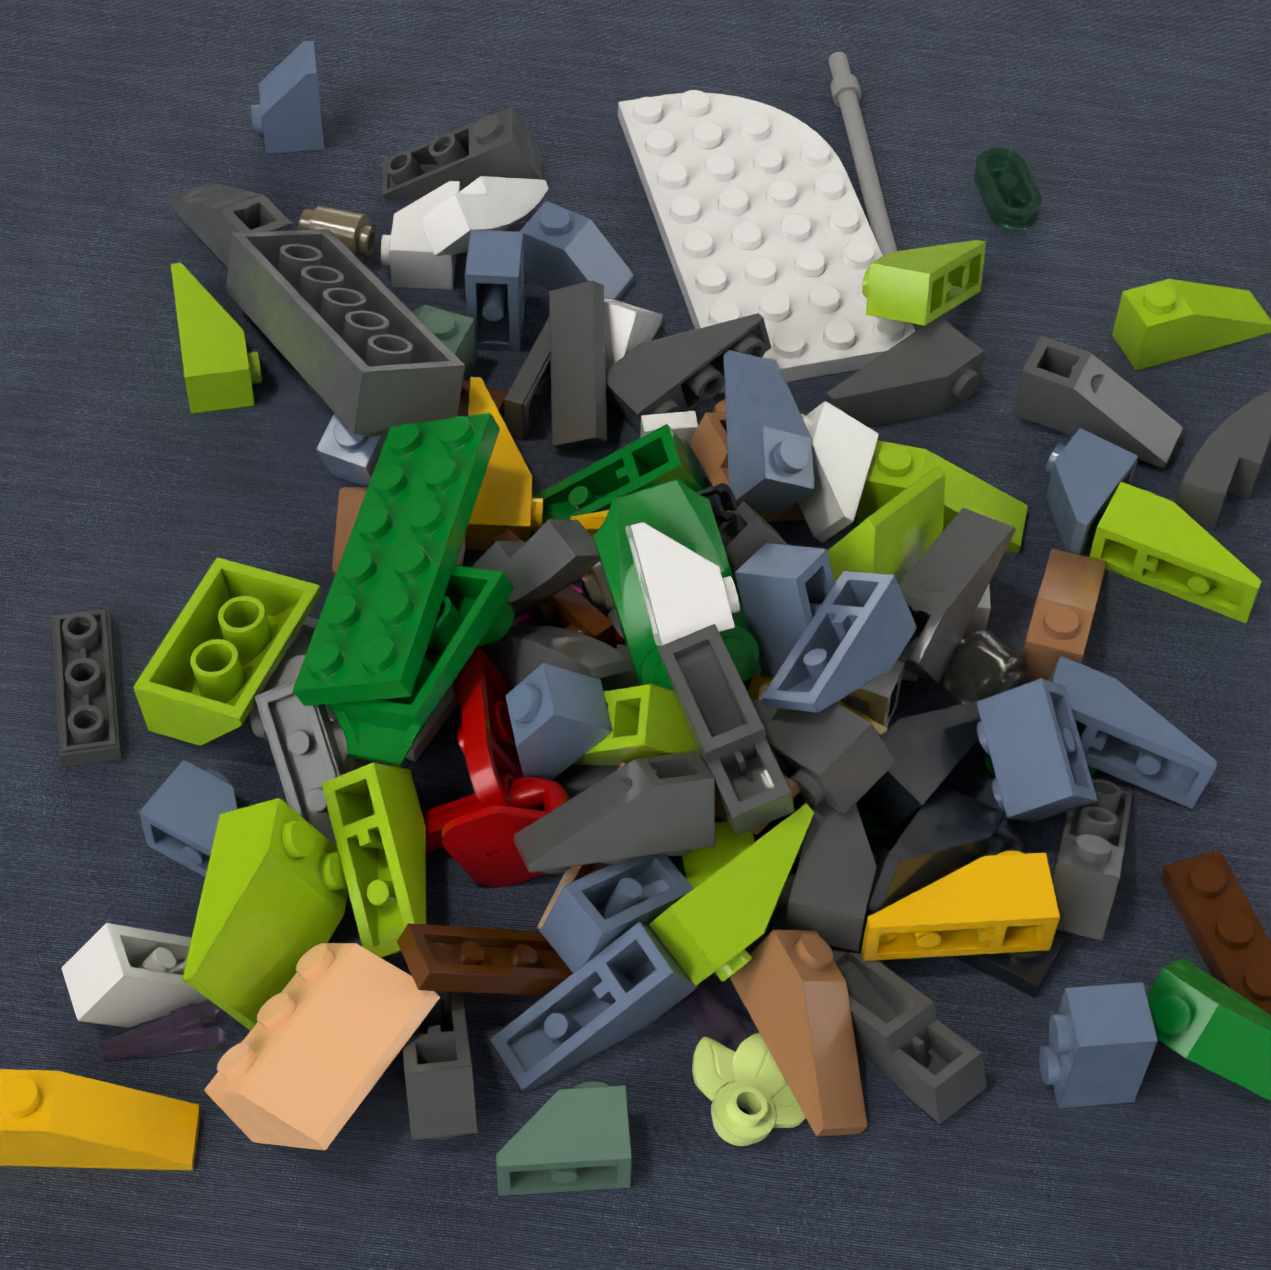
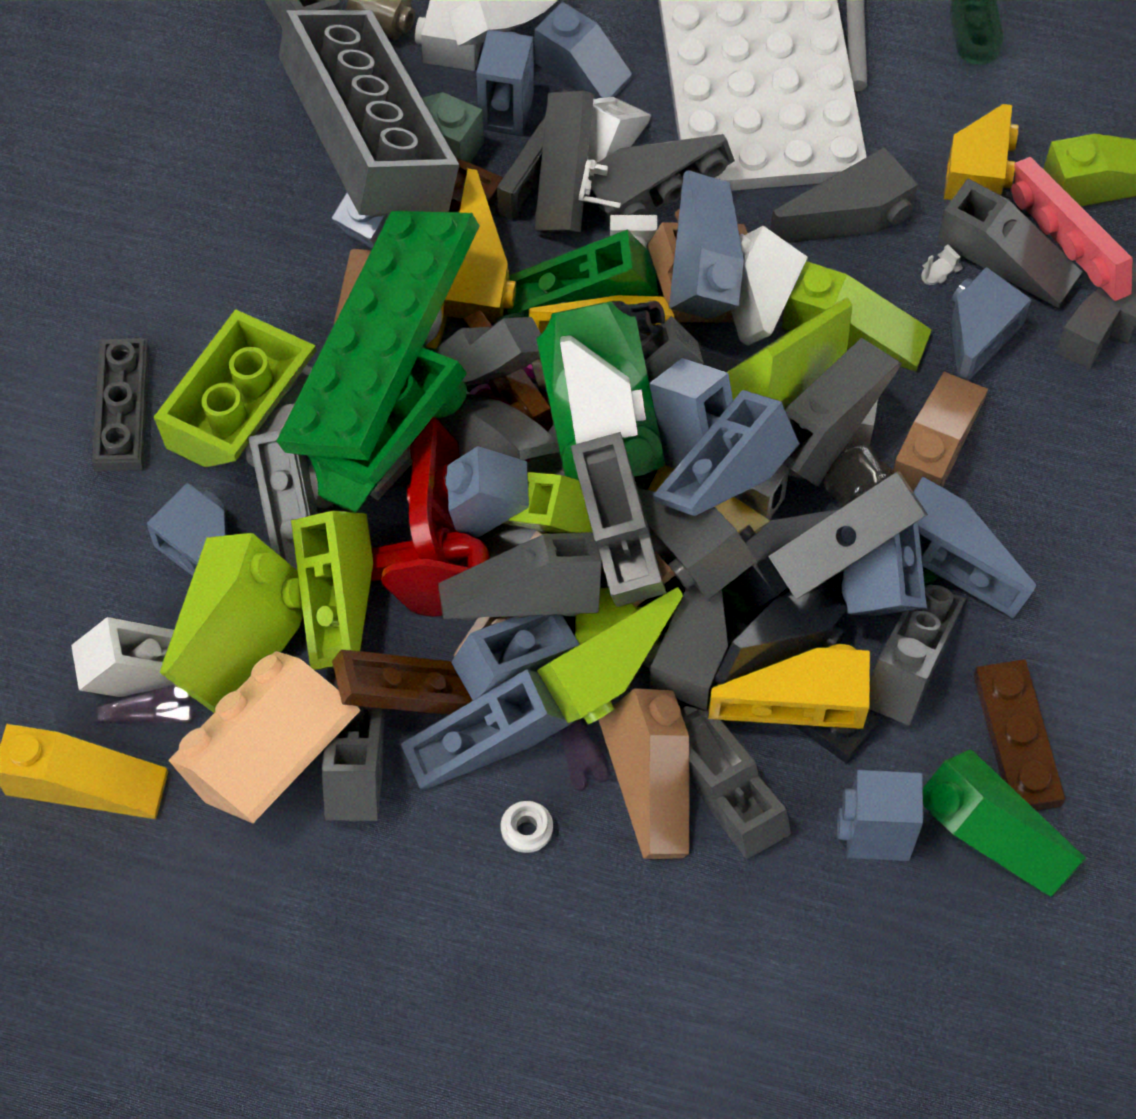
camera: 10 degrees right, 10 degrees up
(212, 349) = (260, 111): lime slope -> none
(570, 1144) = (448, 838): sand green slope -> none
(619, 366) = (590, 169): none -> white piece
(663, 1101) = (526, 812): none -> white plate
(746, 1081) = (596, 803): yellowish green plate -> none
(923, 281) = (879, 113): lime slope -> none
(965, 744) = (823, 552): none -> tile
(1027, 438) = (941, 268): none -> white piece
(1045, 309) = (982, 153): none -> yellow slope
(1170, 551) = (1038, 384): lime slope -> none
(1171, 379) = (1072, 229): none -> coral plate

